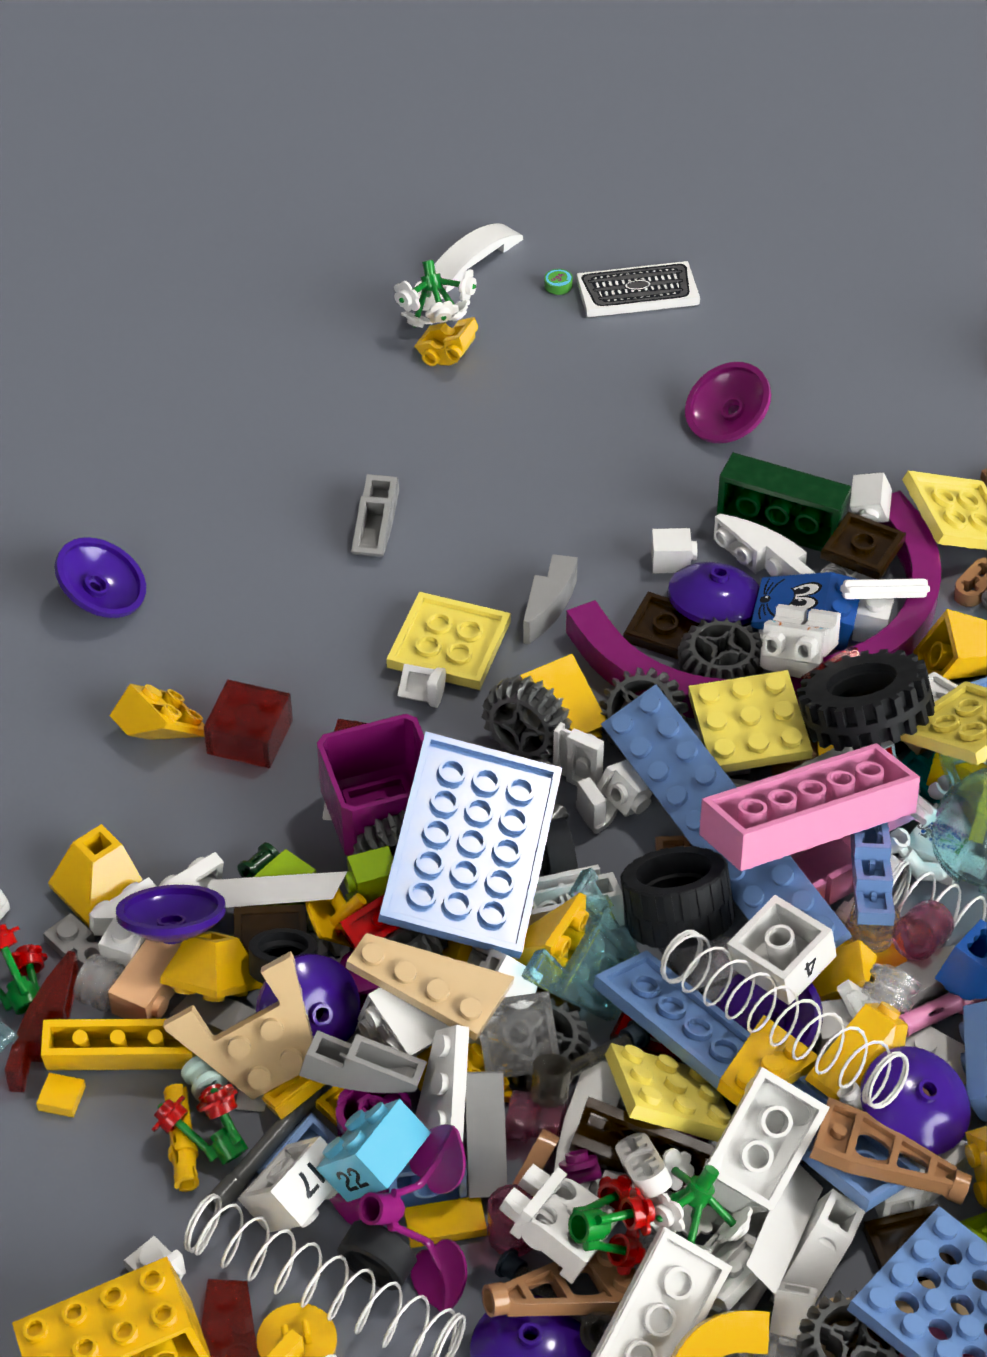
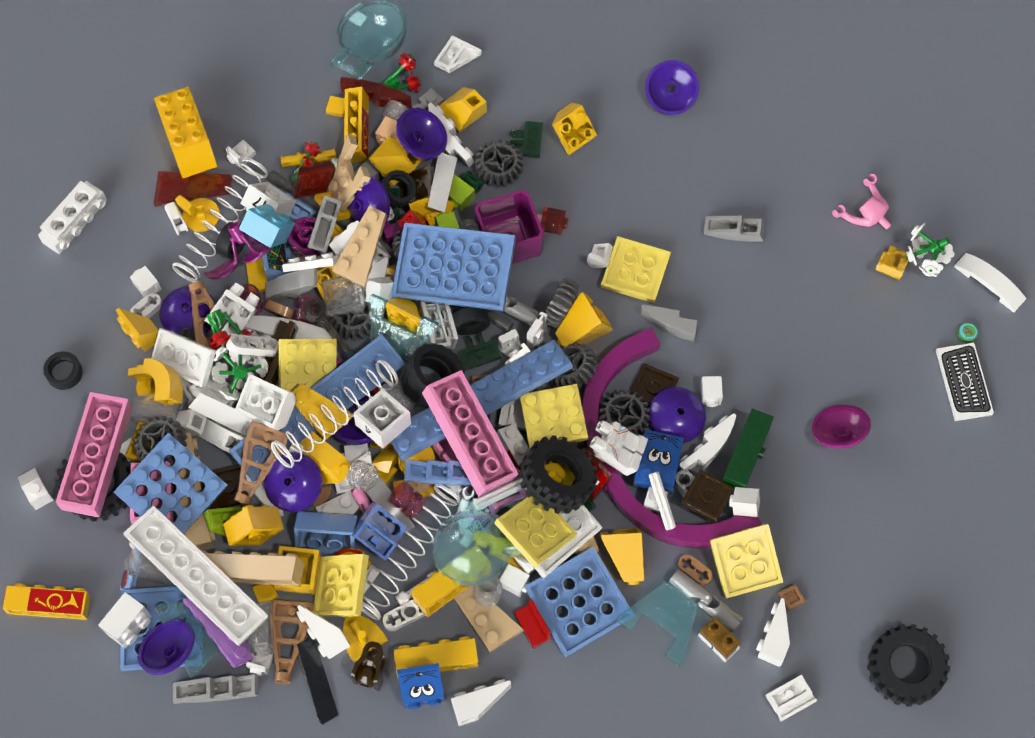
camera: 90 degrees right, 20 degrees up
(177, 779) = (531, 139): none -> clear green hinge
(241, 810) = (506, 156): none -> dark grey gear
(248, 723) = (568, 169): clear red brick -> none
(252, 1102) = (313, 180): none -> clear red tile
(347, 360) = (872, 210): none -> bright pink piece
(581, 1166) = (268, 325): magenta plate -> none
(612, 844) = (480, 354): none -> clear green hinge

